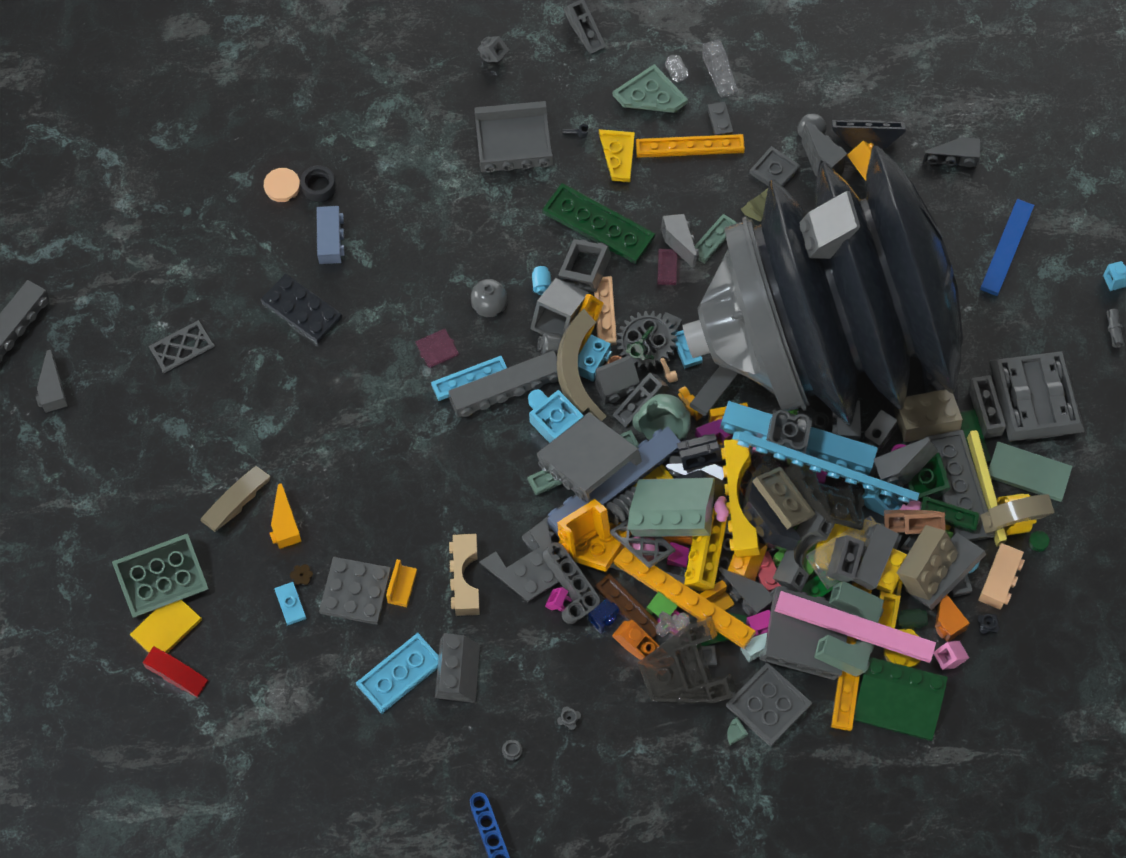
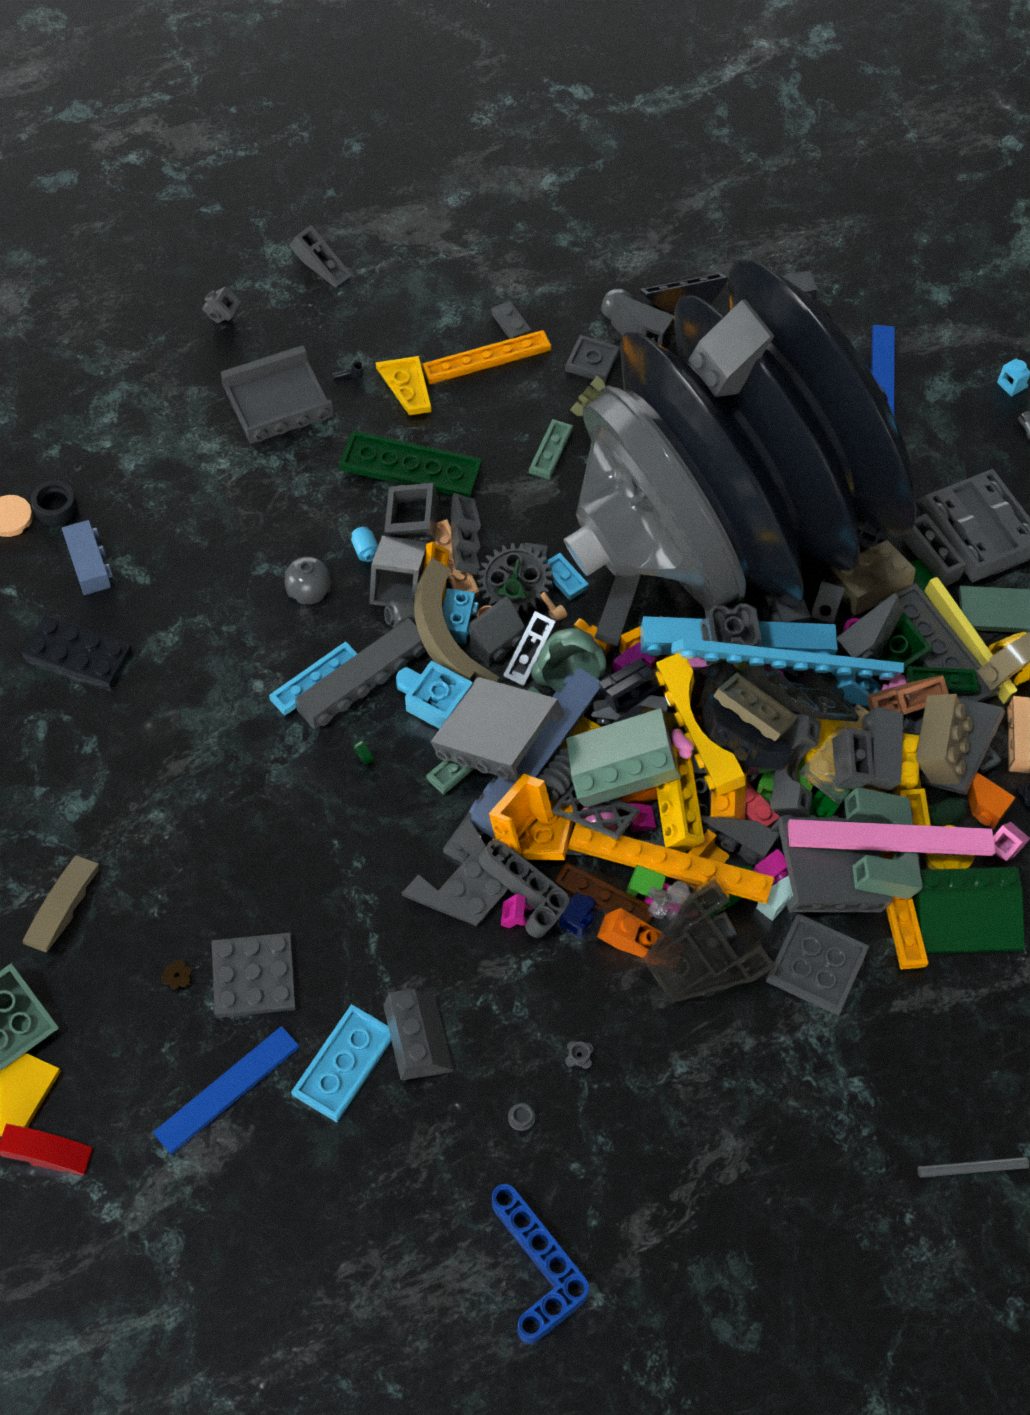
camera: 20 degrees left, 5 degrees down
(283, 523) = (135, 918): light orange slope -> none
(290, 603) = (173, 1016): medium azure plate -> none
(311, 667) = (225, 1090): none -> blue tile
(401, 584) = (311, 951): light orange panel -> none
(436, 348) = (262, 655): clear pink piece -> none
(464, 552) = (398, 941): tan arch -> none
(486, 446) = (362, 752): none -> dark green tile
(620, 292) = (464, 536): none -> dark grey slope
(650, 92) = (421, 309): sand green plate -> none
(667, 266) = (508, 493): clear pink tile -> none
(676, 68) = (442, 277): clear brick -> none
(677, 235) = (511, 455): slope -> none
(719, 67) = (490, 266): clear slope -> none
(736, 731) = (789, 1009): sand green tile -> none

